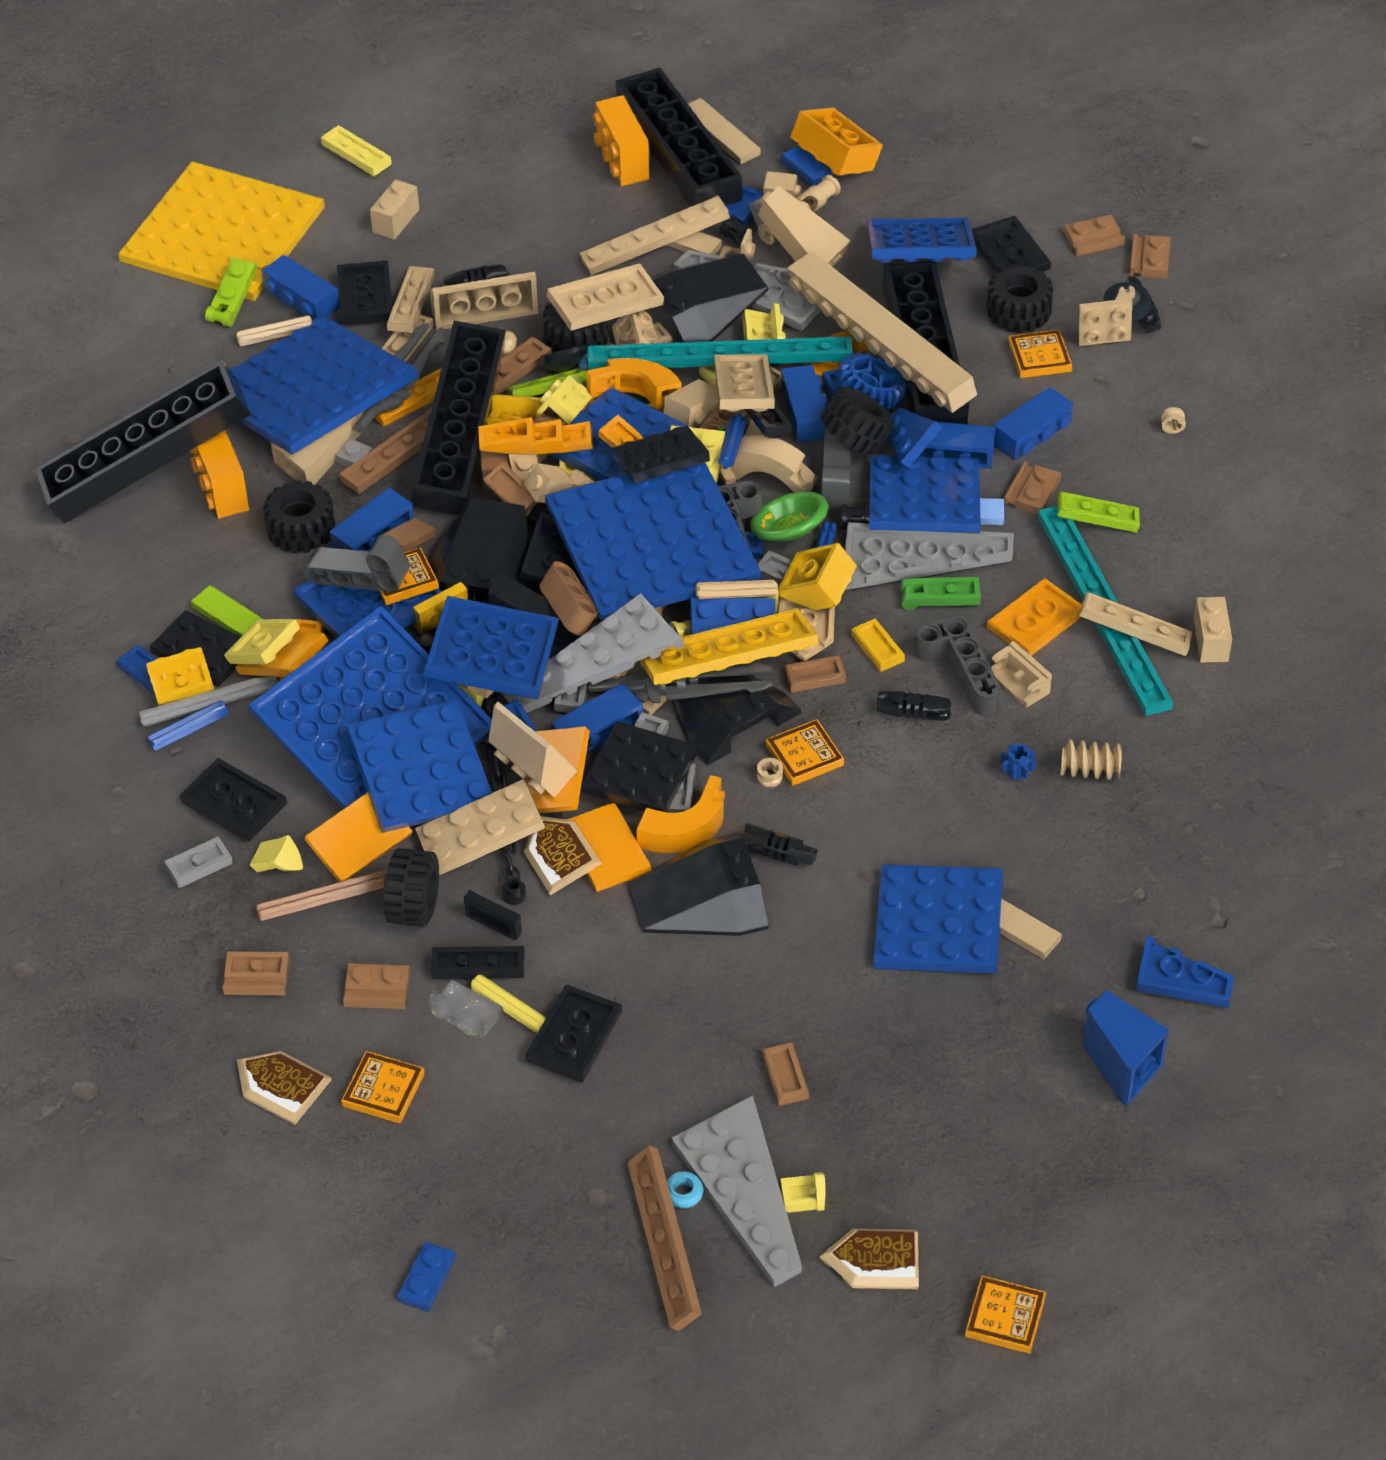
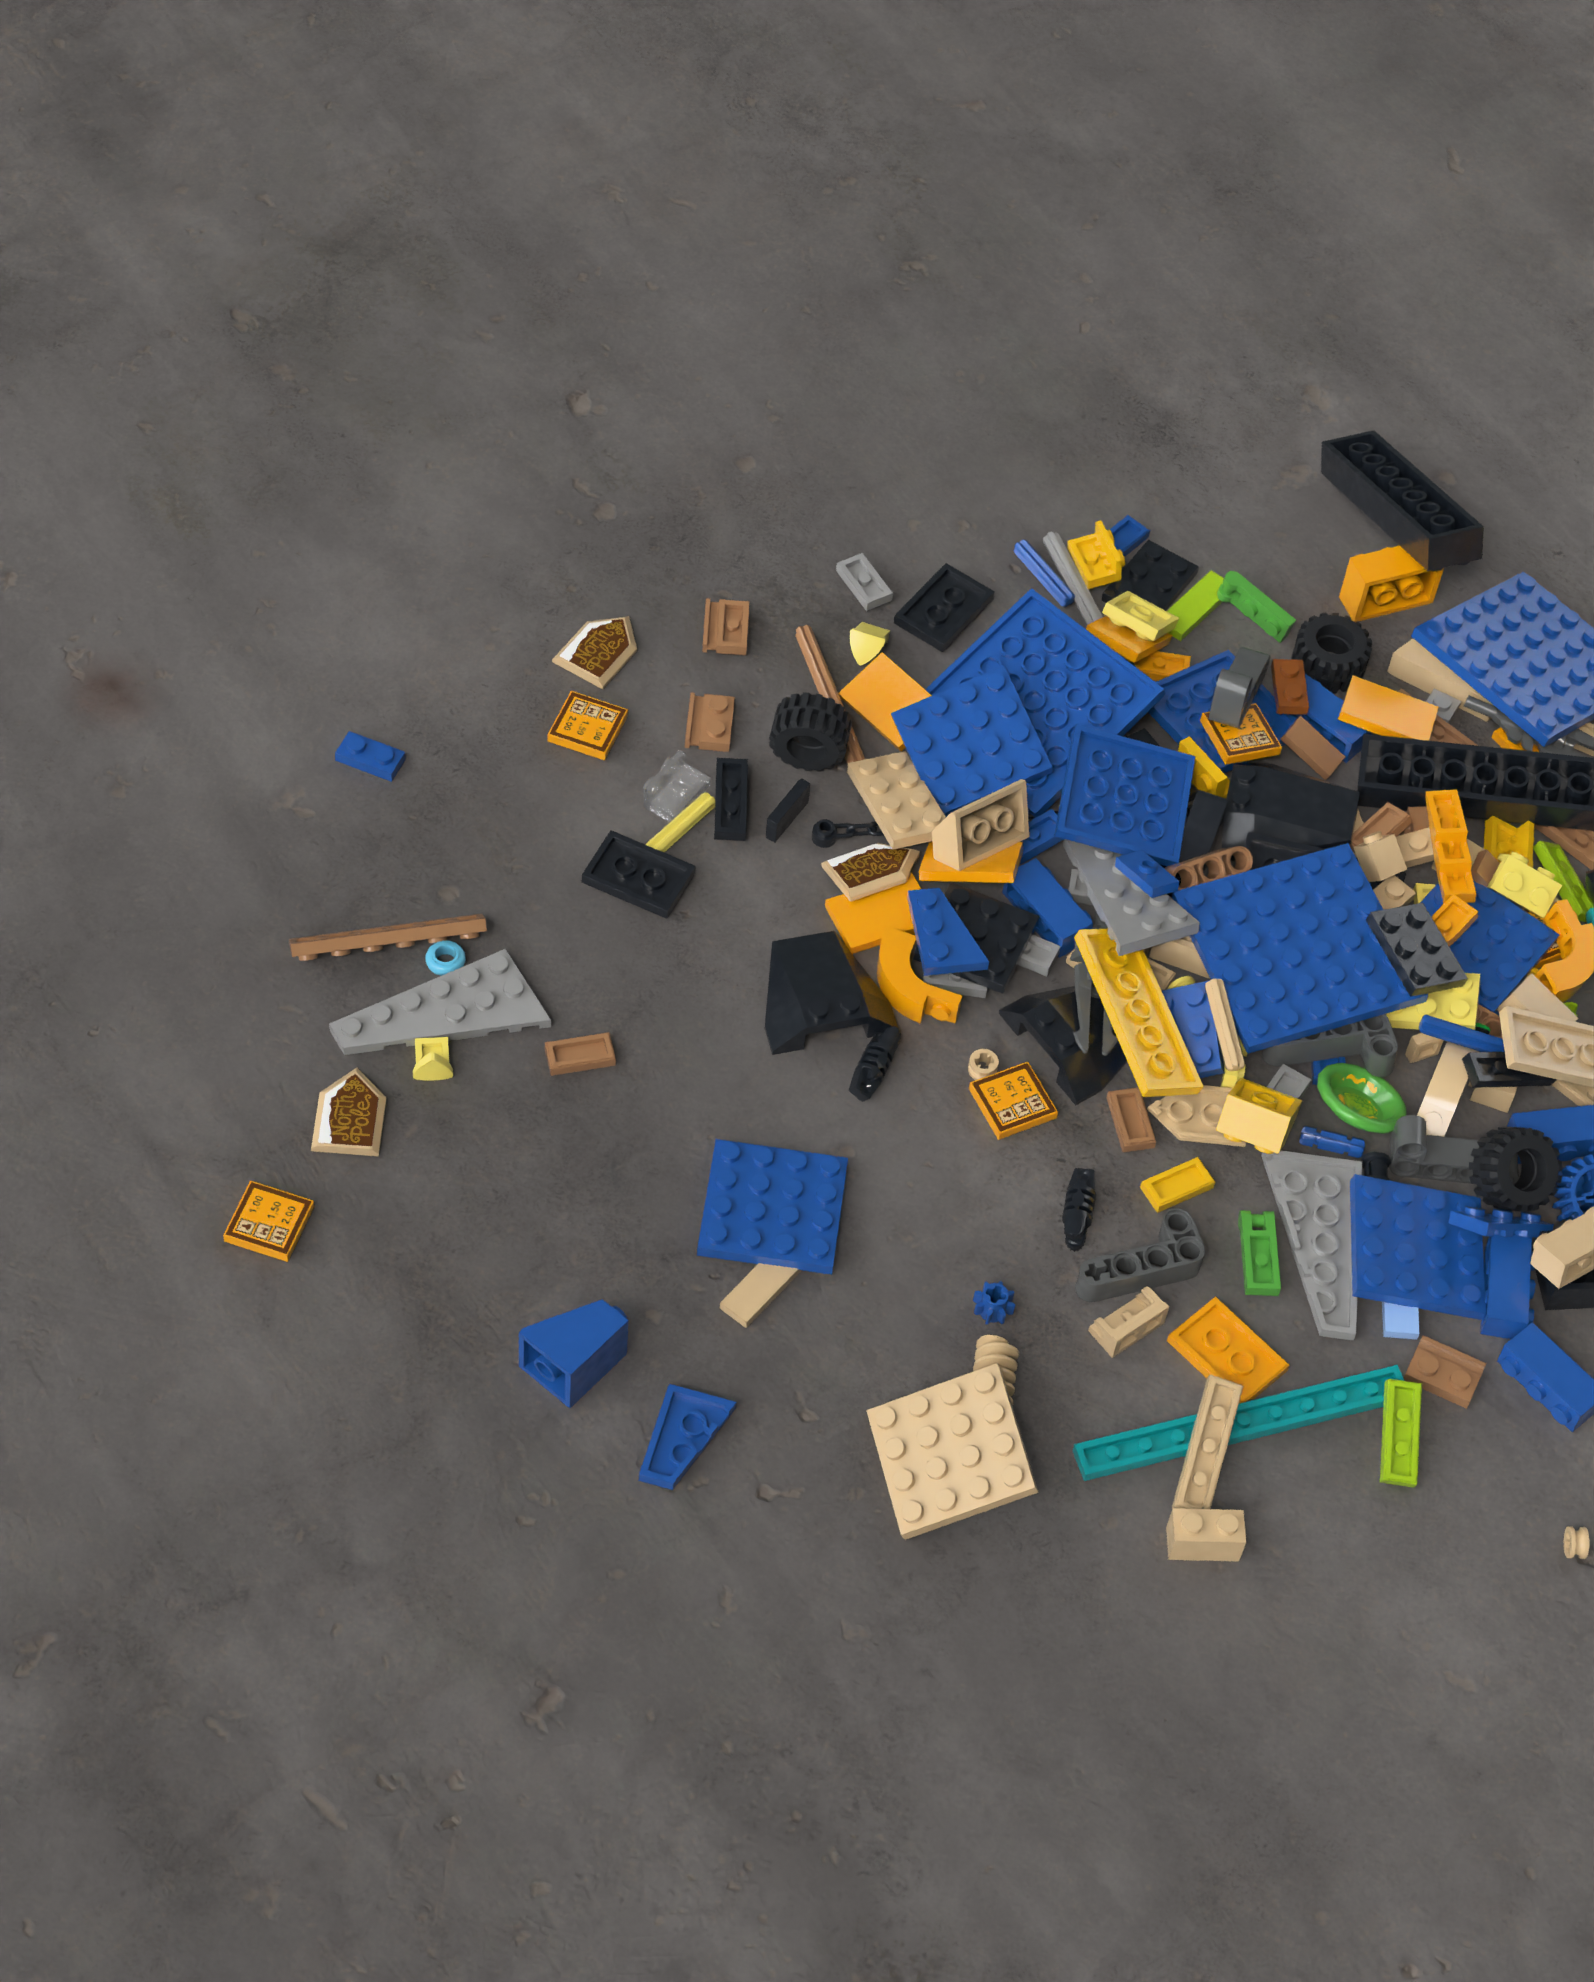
camera: 85 degrees right, 5 degrees up
(243, 565) = (1255, 605): none -> bright green plate
(350, 537) = (1289, 686): none -> dark orange plate
(378, 476) = (1387, 711): none -> light orange tile
(583, 631) = (1147, 873): none -> blue plate
(650, 784) = (941, 935): none -> blue wing
(1173, 783) = (951, 1451): none -> tan plate

